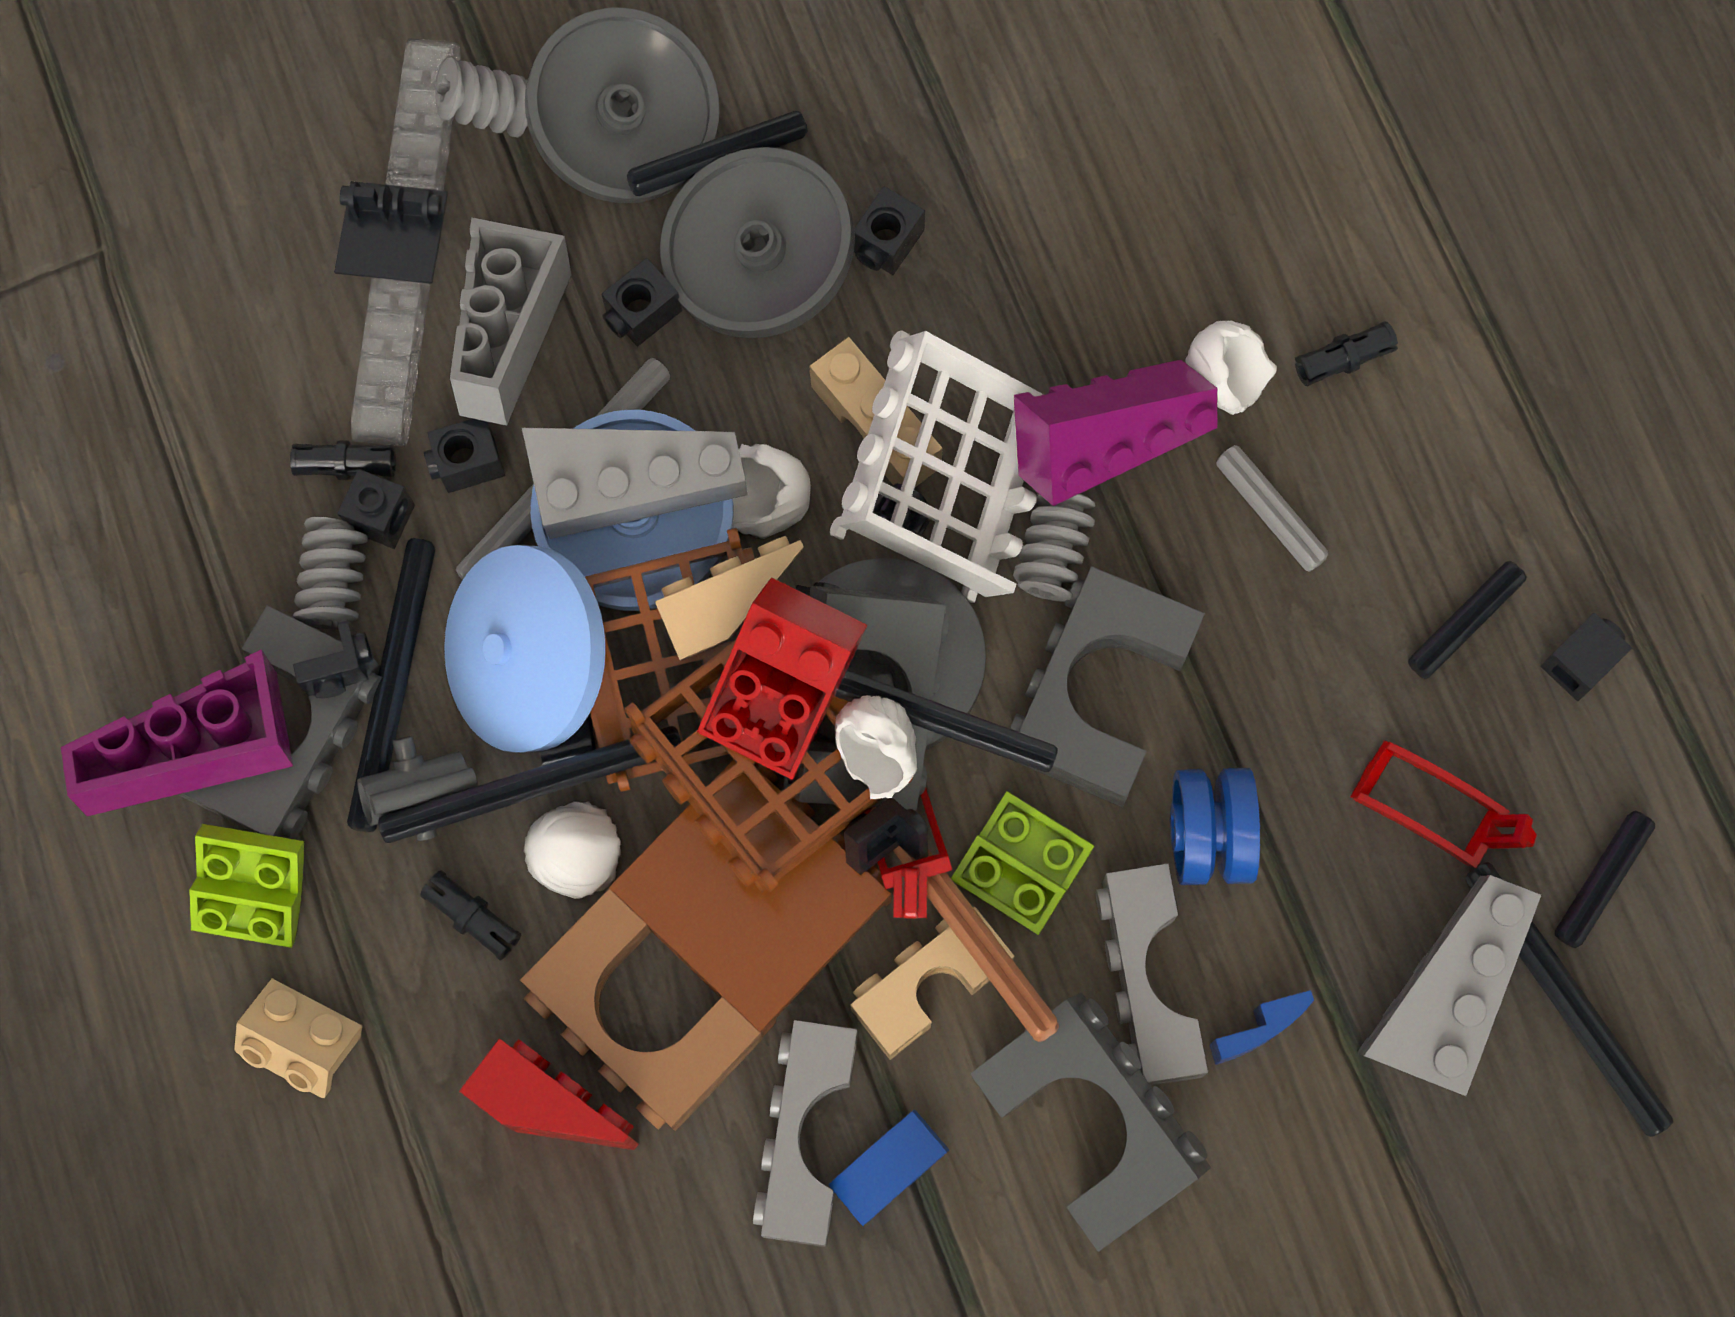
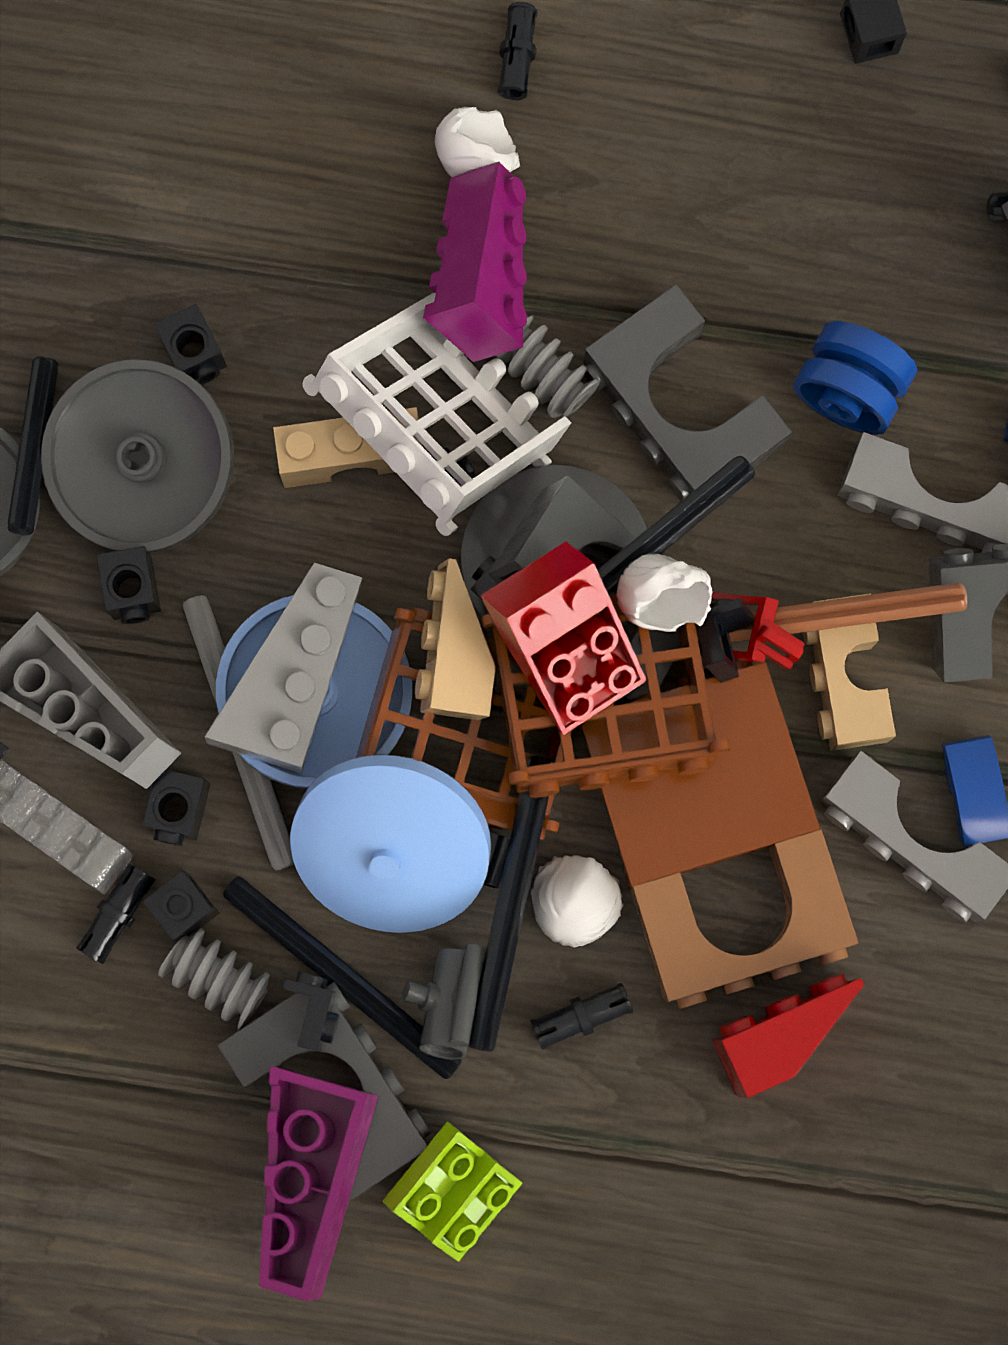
camera: 65 degrees left, 5 degrees up
(295, 1038) = (605, 1218): tan bracket -> none
(775, 489) = (375, 560): white hair -> none
(1022, 862) = (789, 546): lime slope -> none
(1272, 508) = (610, 184): light grey axle -> none
(1467, 619) = (789, 93): black axle -> none
(1486, 834) = (967, 182): red sword -> none

